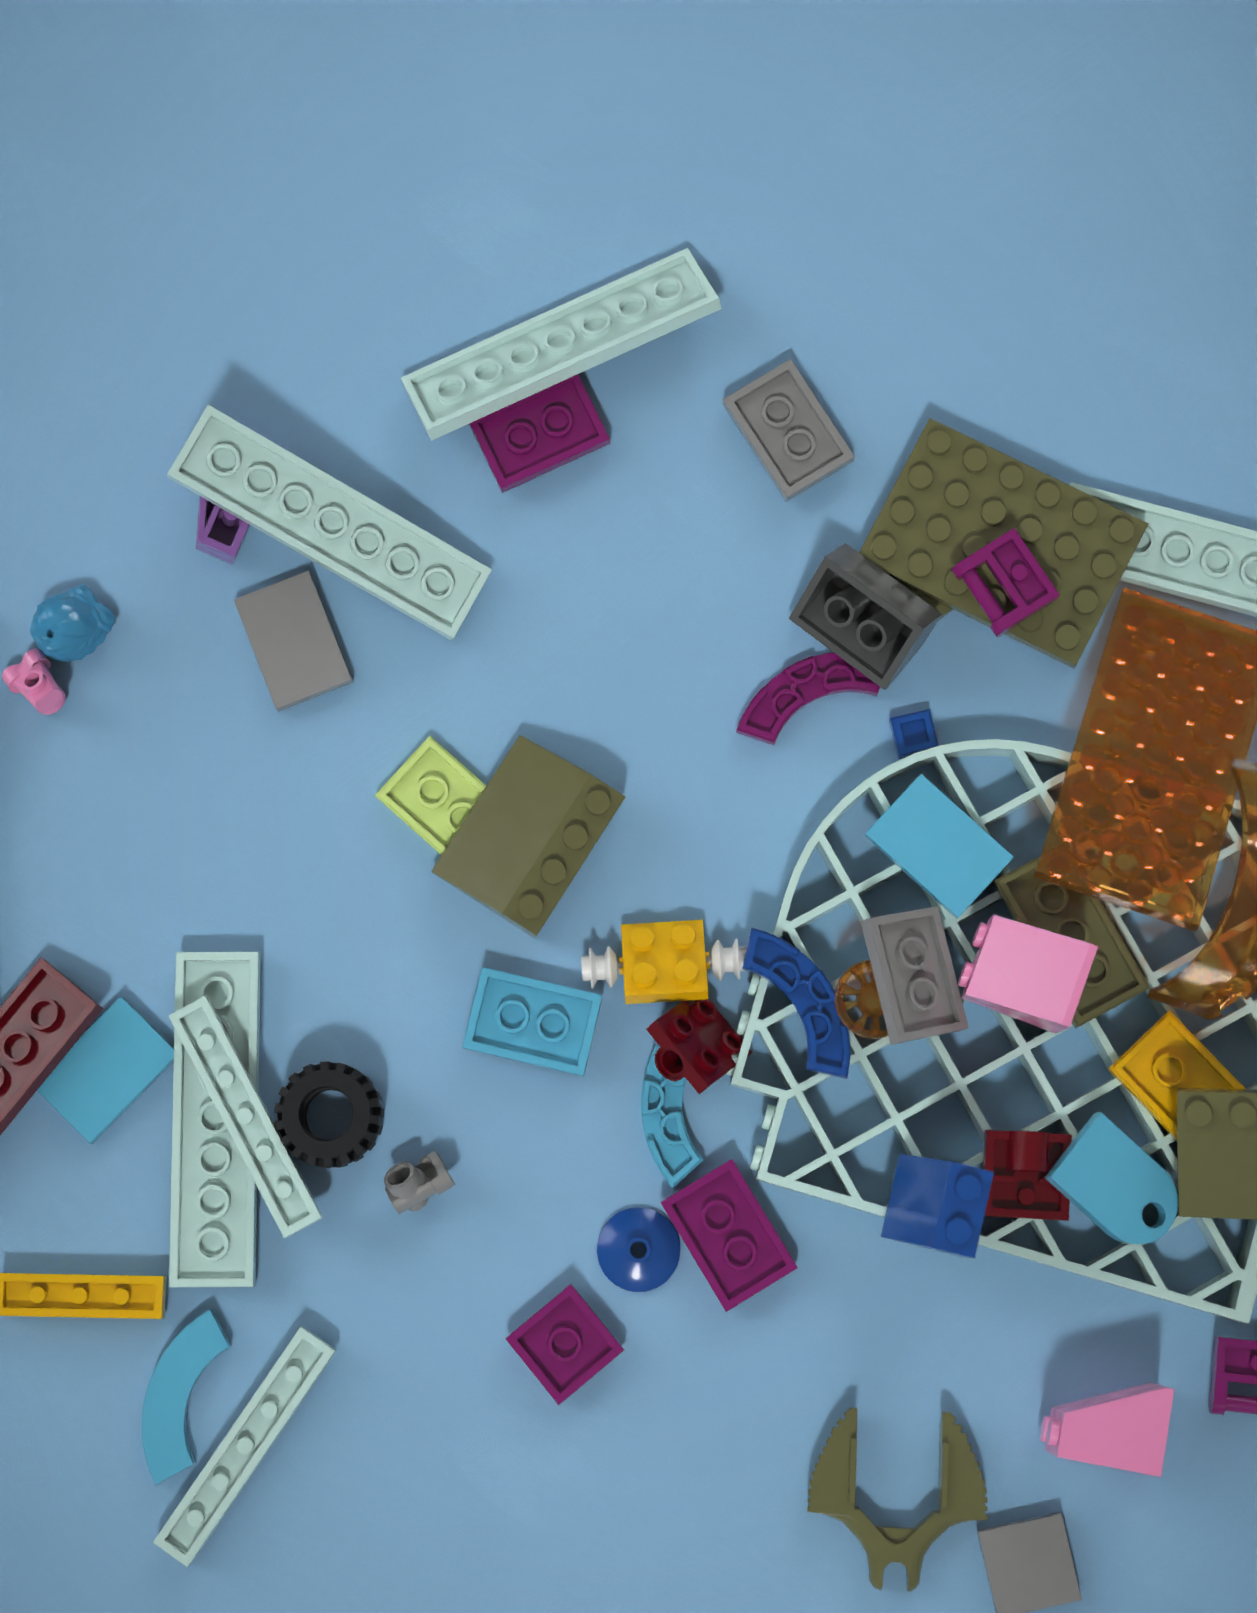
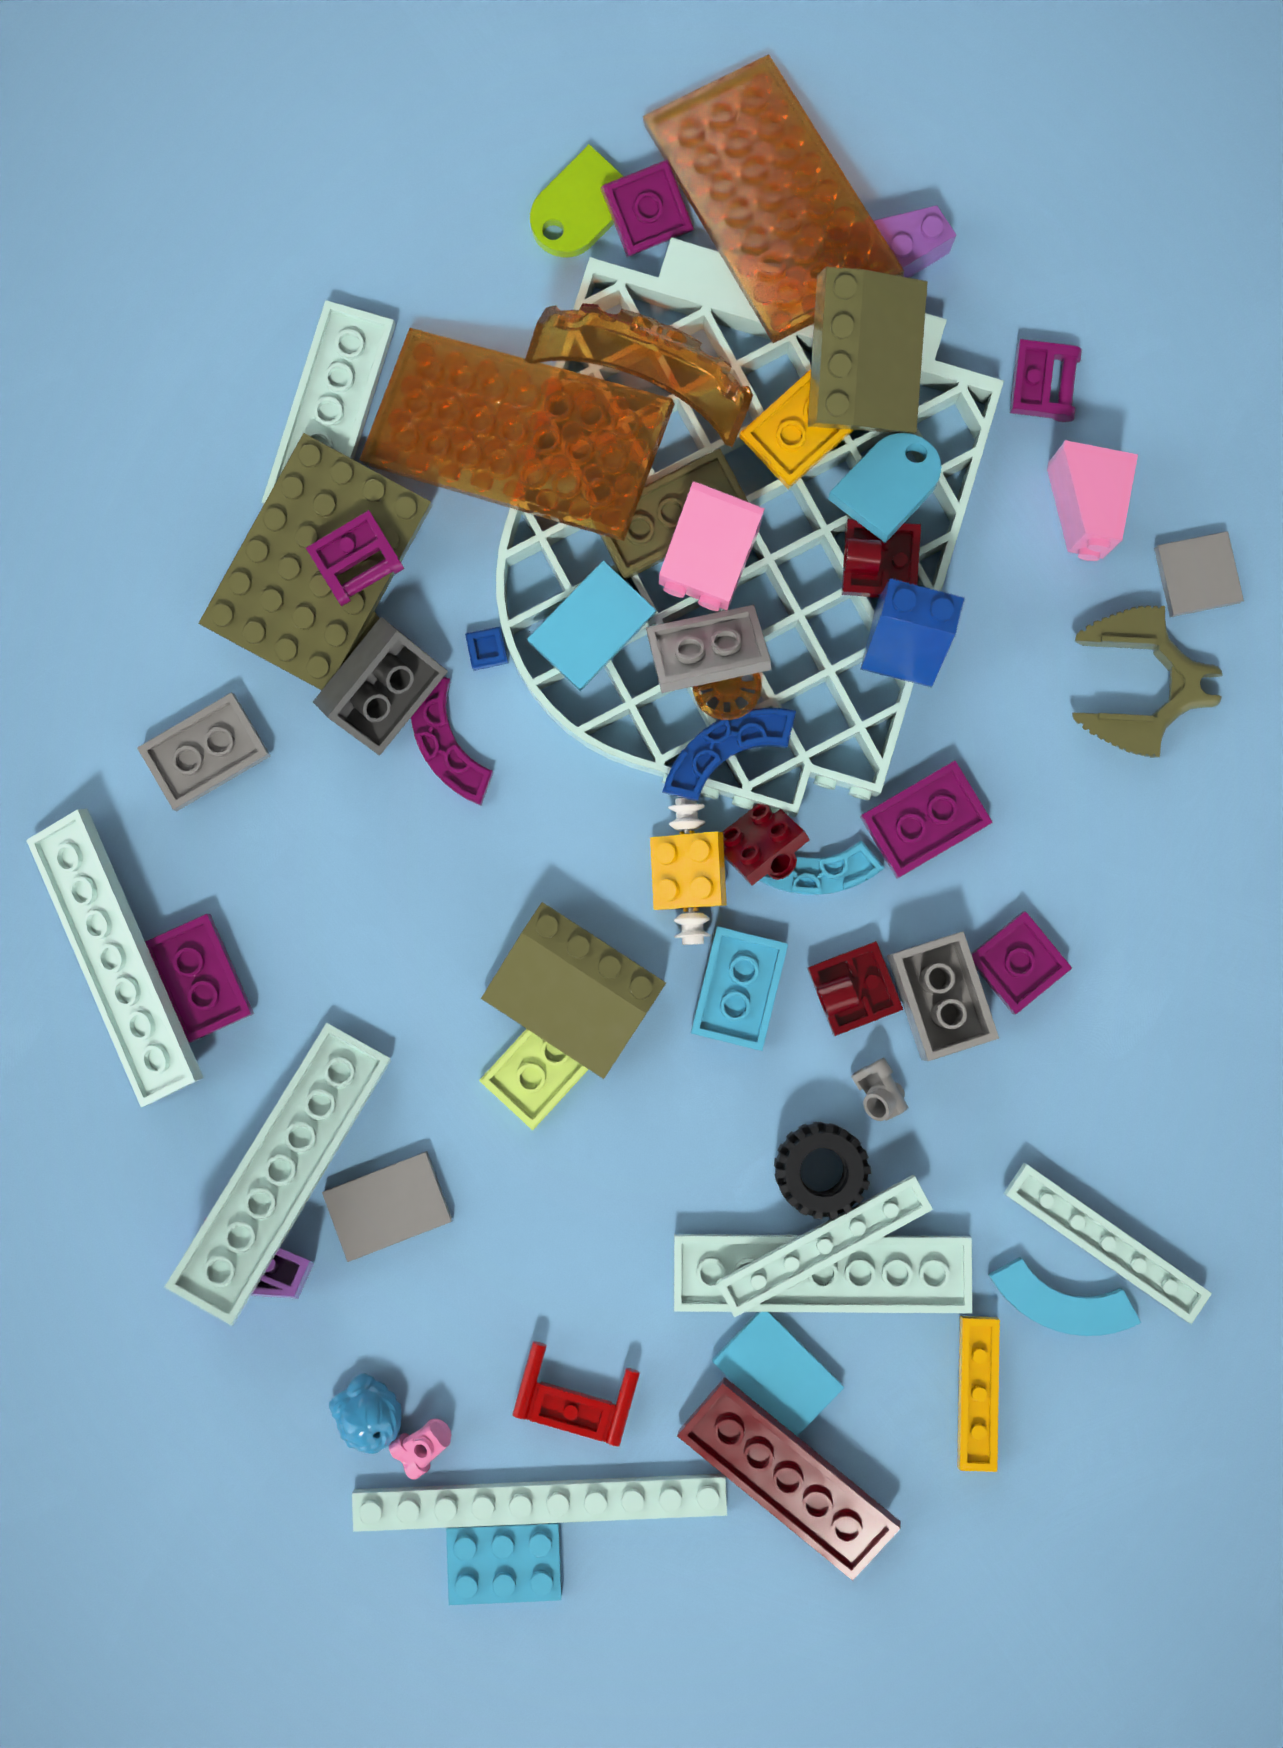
camera: 95 degrees left, 5 degrees up
(72, 843) = (572, 1409): none -> red plate
(524, 1251) = (942, 996): none -> light grey brick
(533, 1153) = (855, 988): none -> dark red plate
(661, 1255) = (918, 903): blue dish -> none

